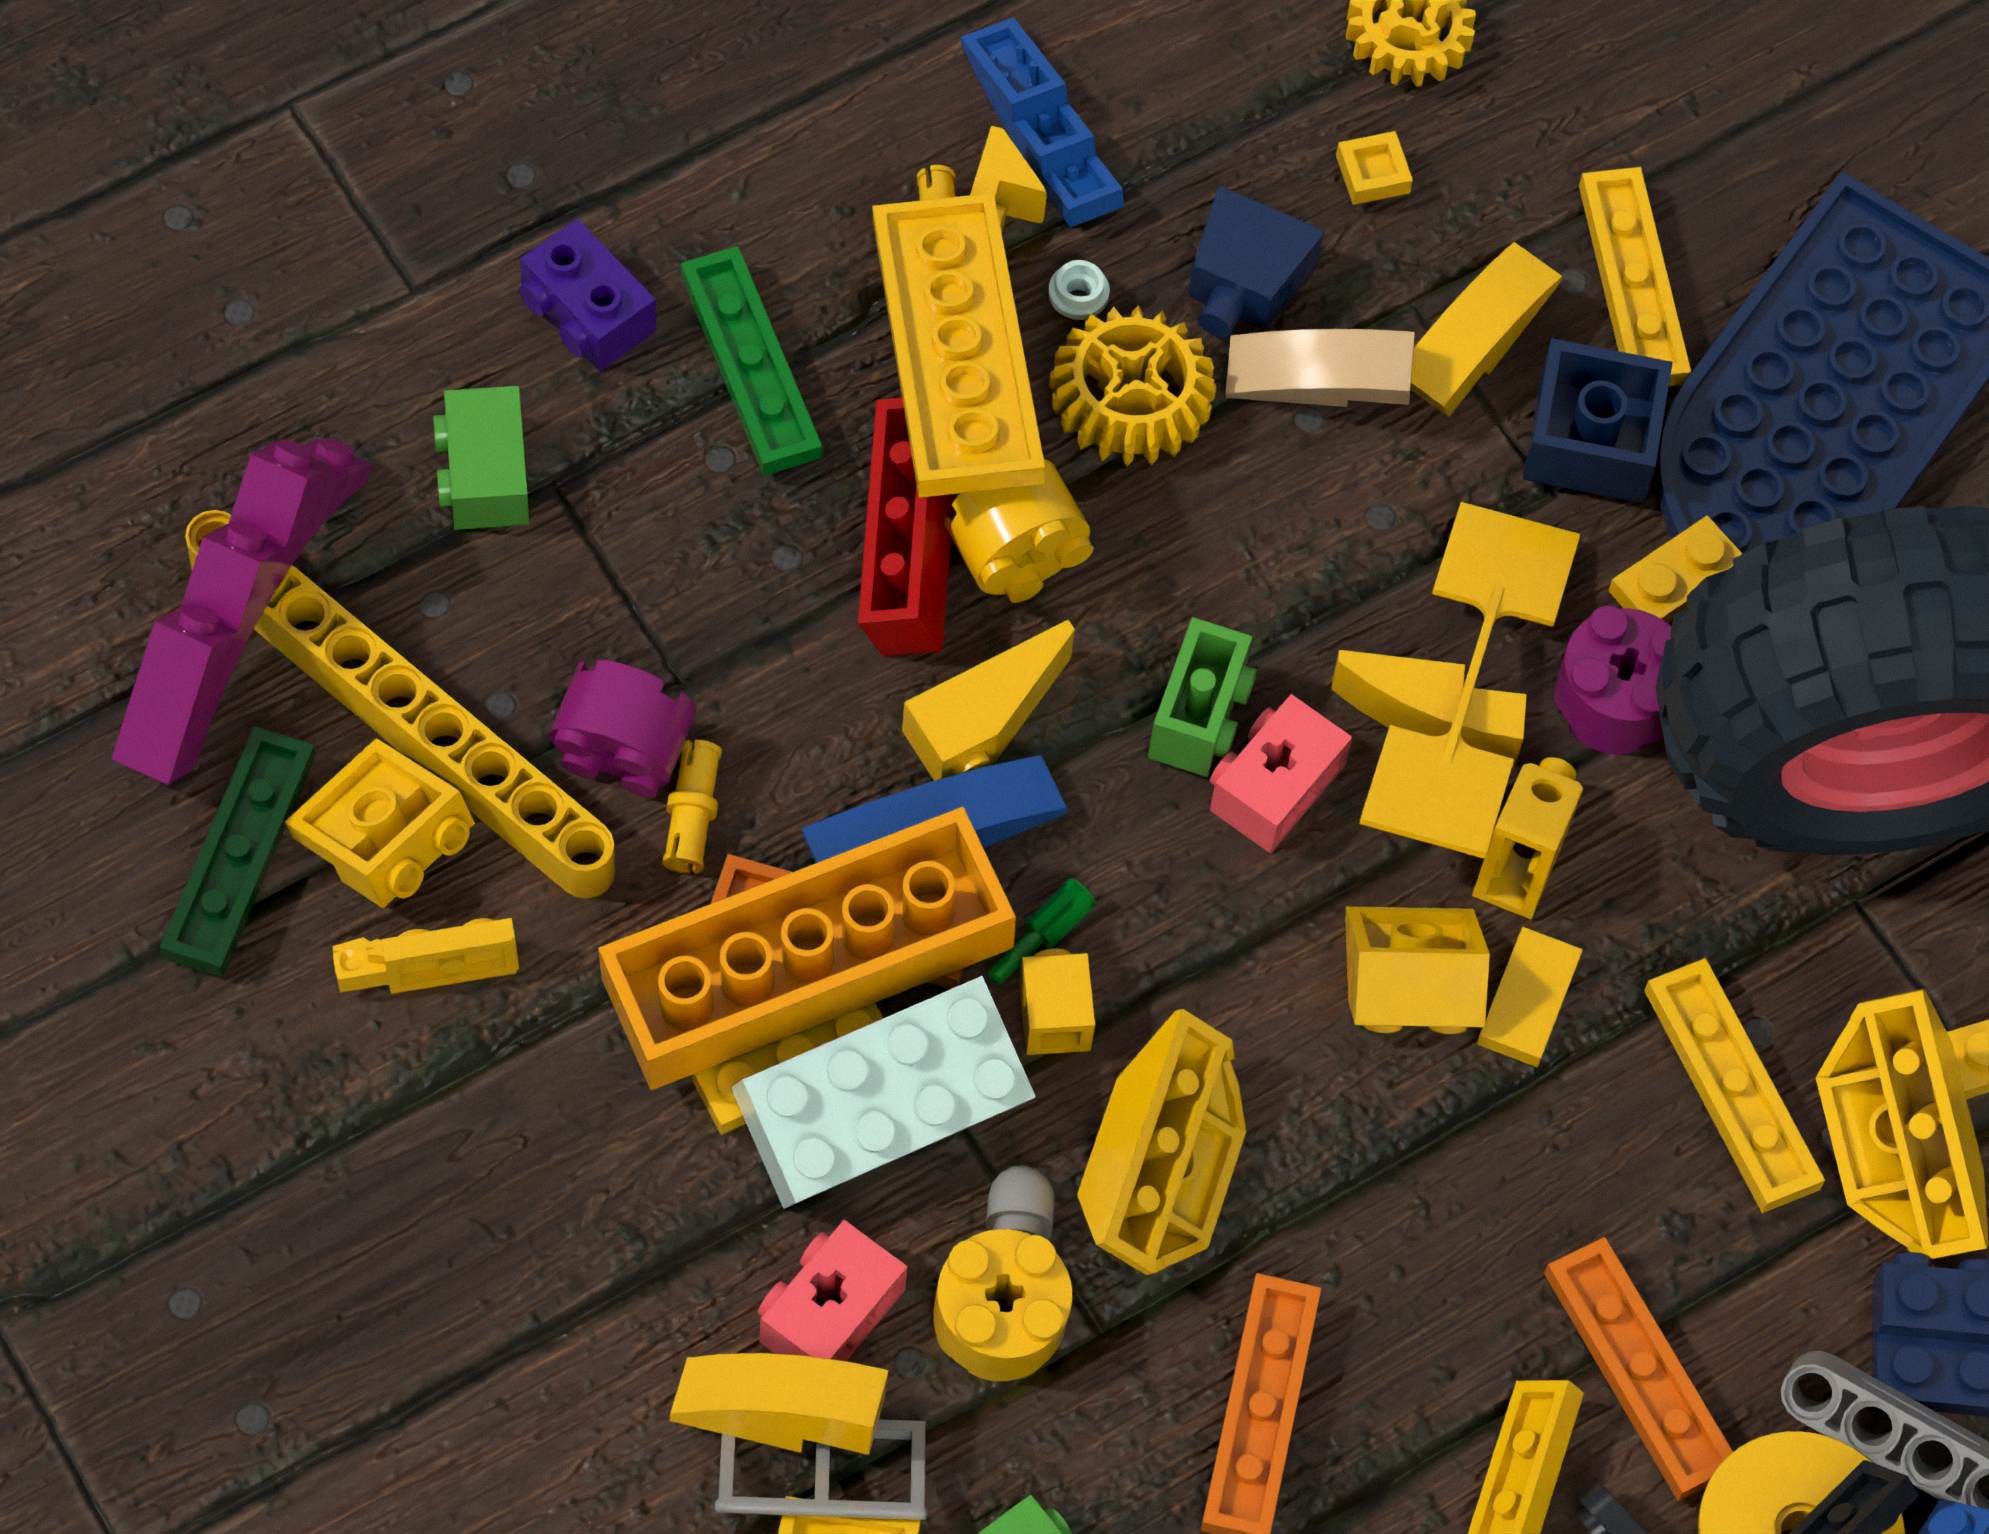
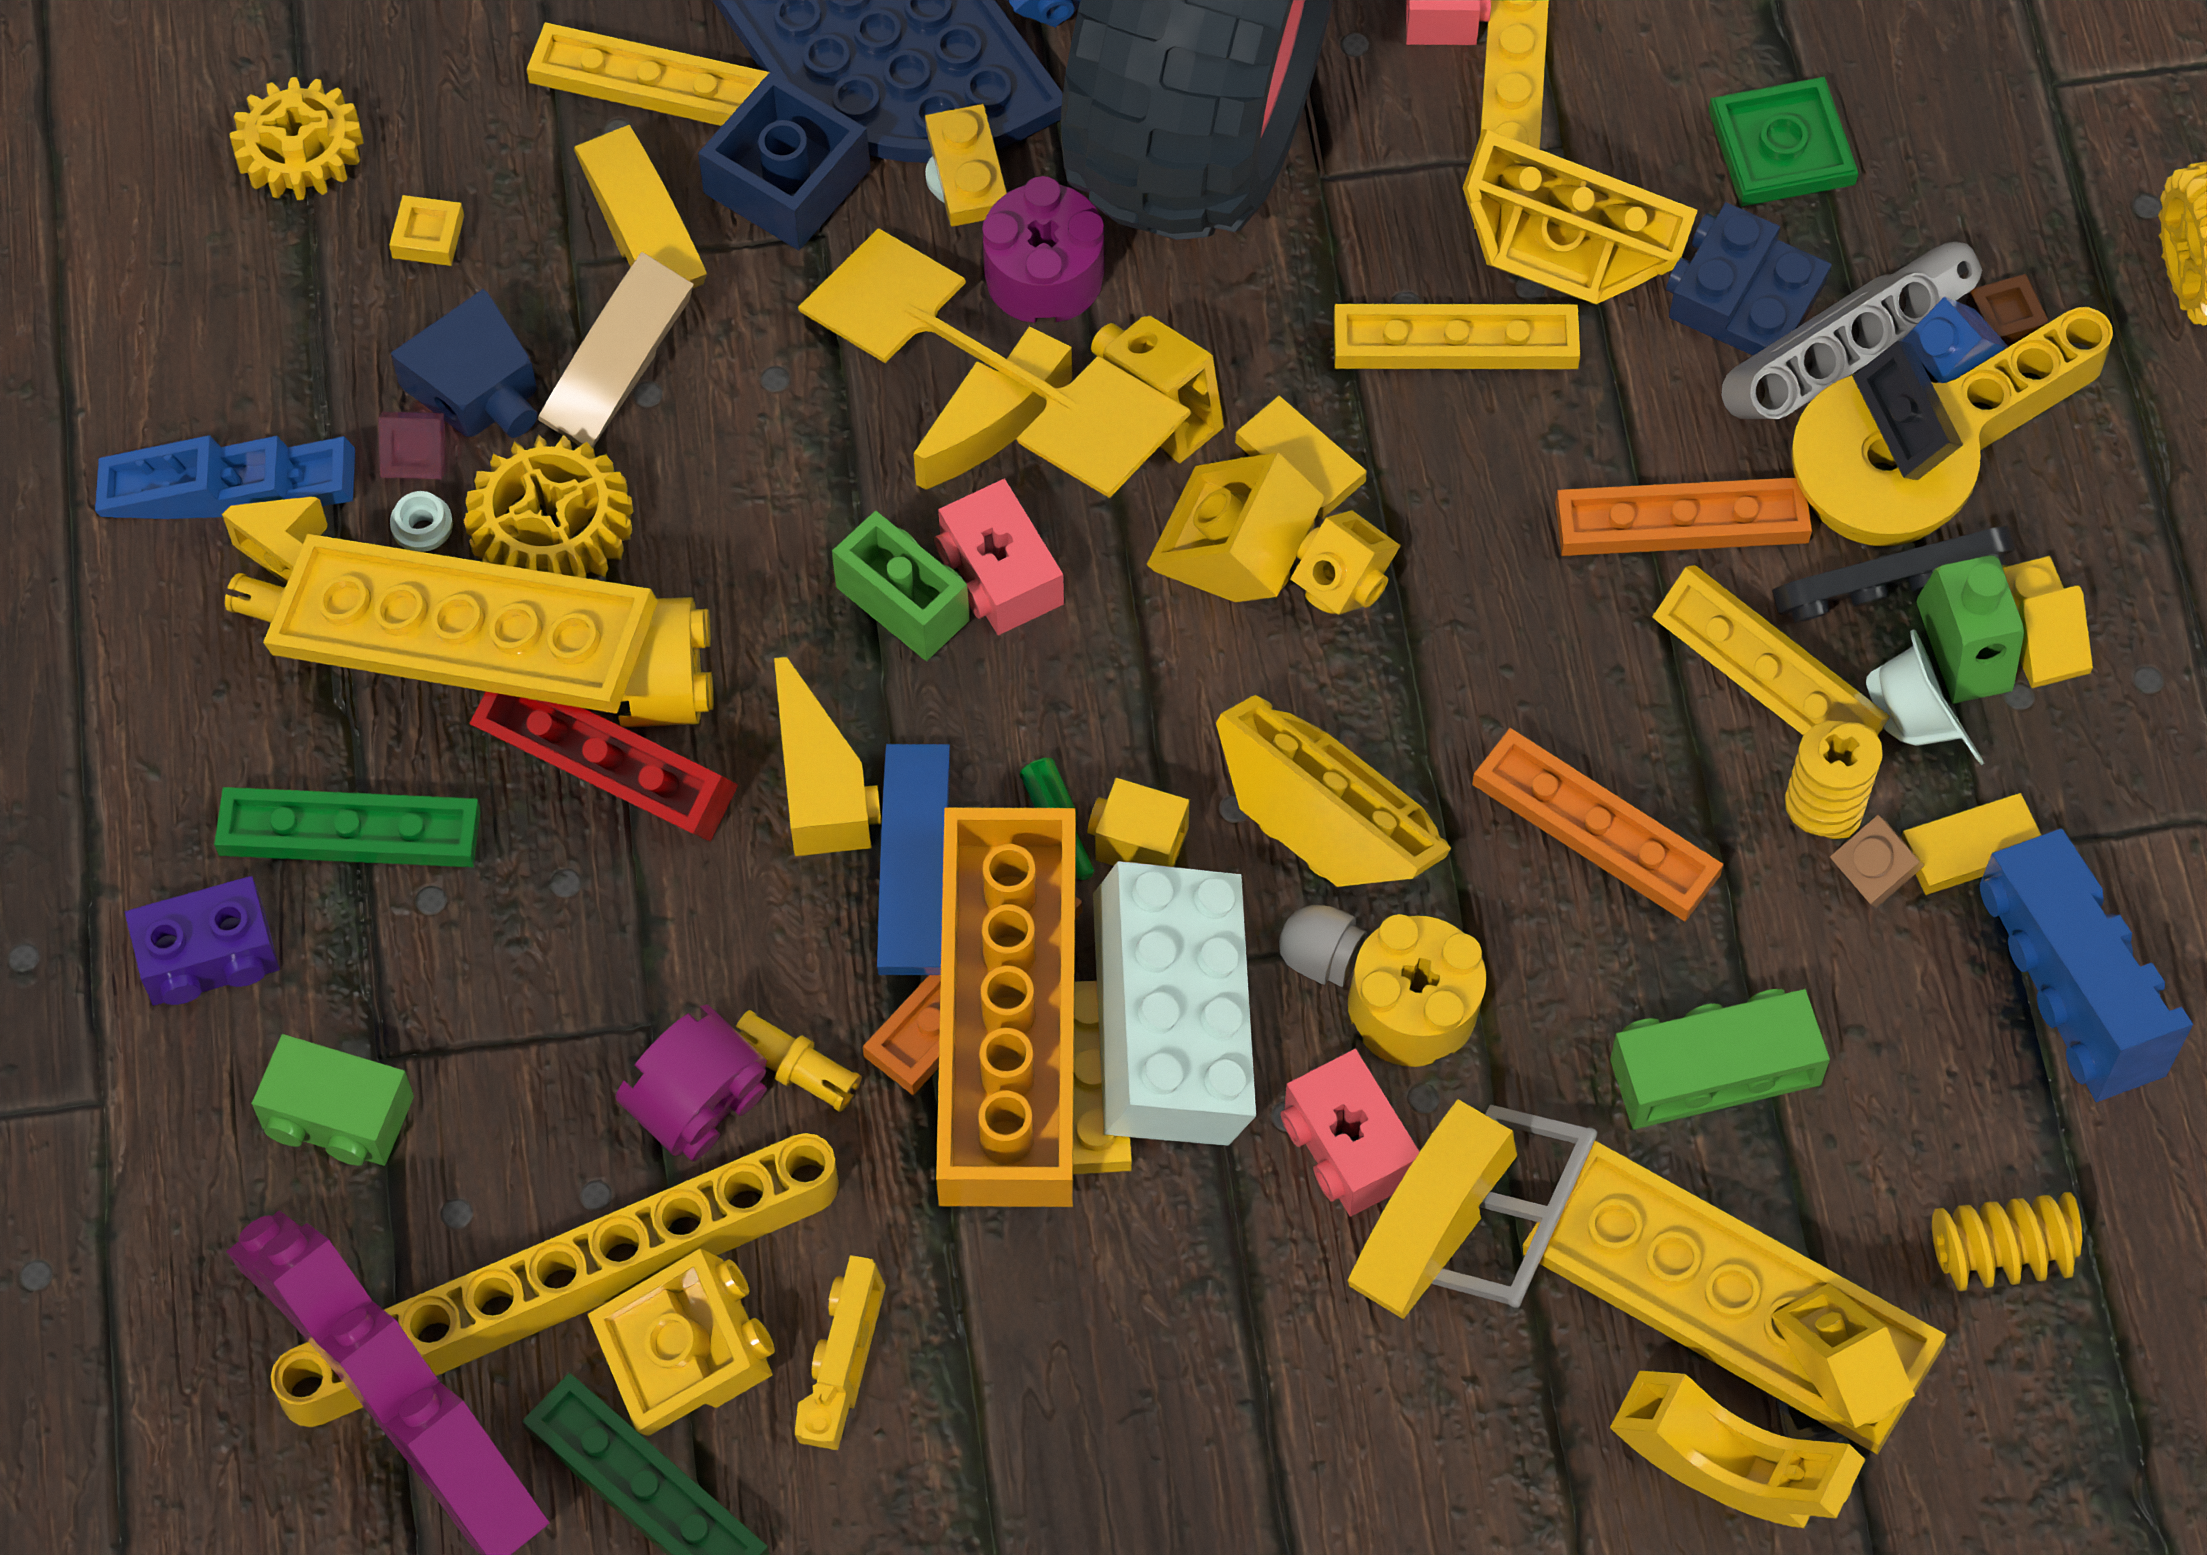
camera: 60 degrees left, 0 degrees up
(1147, 248) = (411, 445): none -> clear pink plate
(1421, 1071) = (1344, 563): none -> yellow brick

